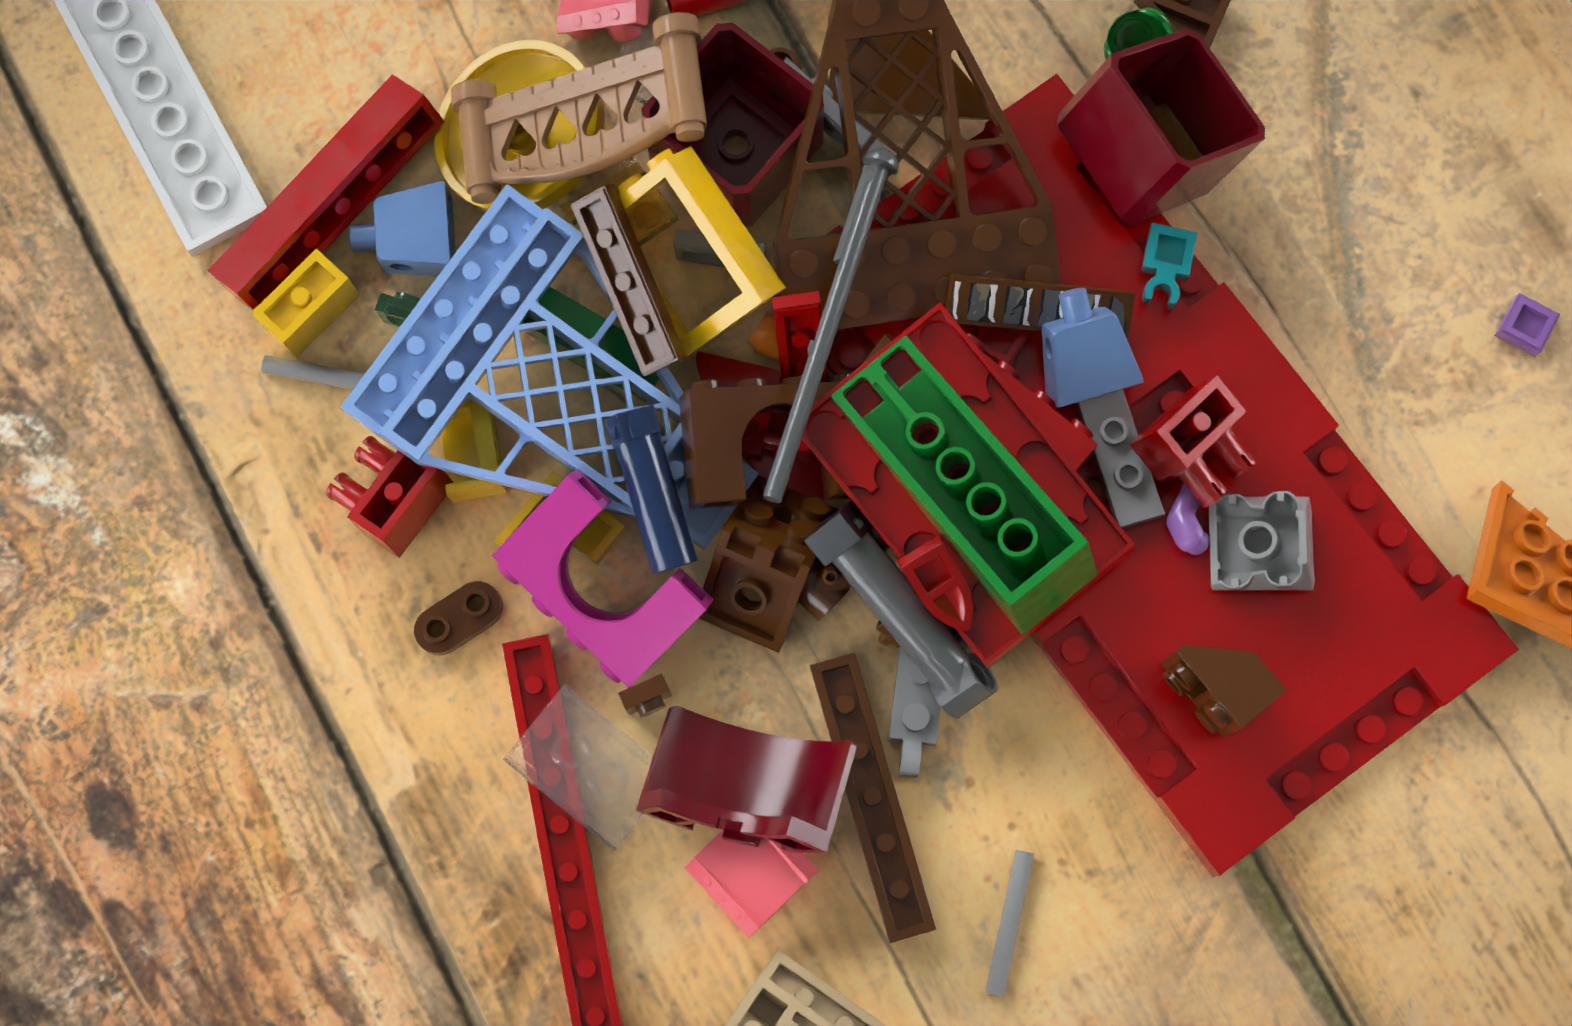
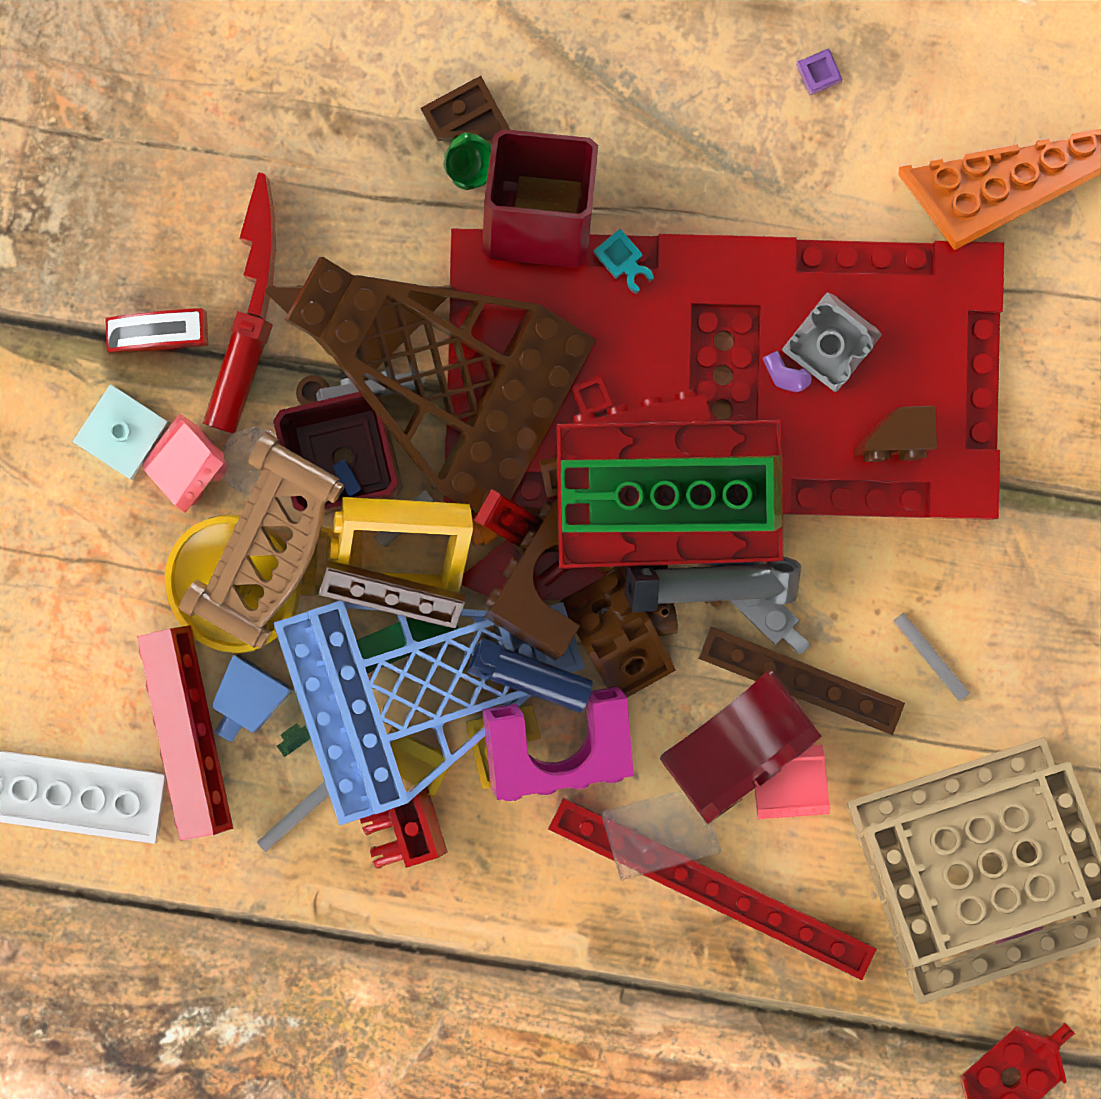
camera: 55 degrees left, 10 degrees up
(306, 303) = (245, 795): yellow panel -> none
(459, 621) = (510, 843): reddish brown plate -> none
(646, 696) = (644, 768): reddish brown plate -> none
(717, 151) = (348, 478): none -> blue plate
(877, 165) = (483, 454): dark grey bar -> none
(939, 583) = (718, 553): red plate -> none
(1024, 303) = (593, 360): tile -> none
(1085, 352) = (644, 356): medium blue torso -> none
(1121, 471) = (717, 382): light grey plate -> none
(1186, 430) = (737, 333): red brick -> none

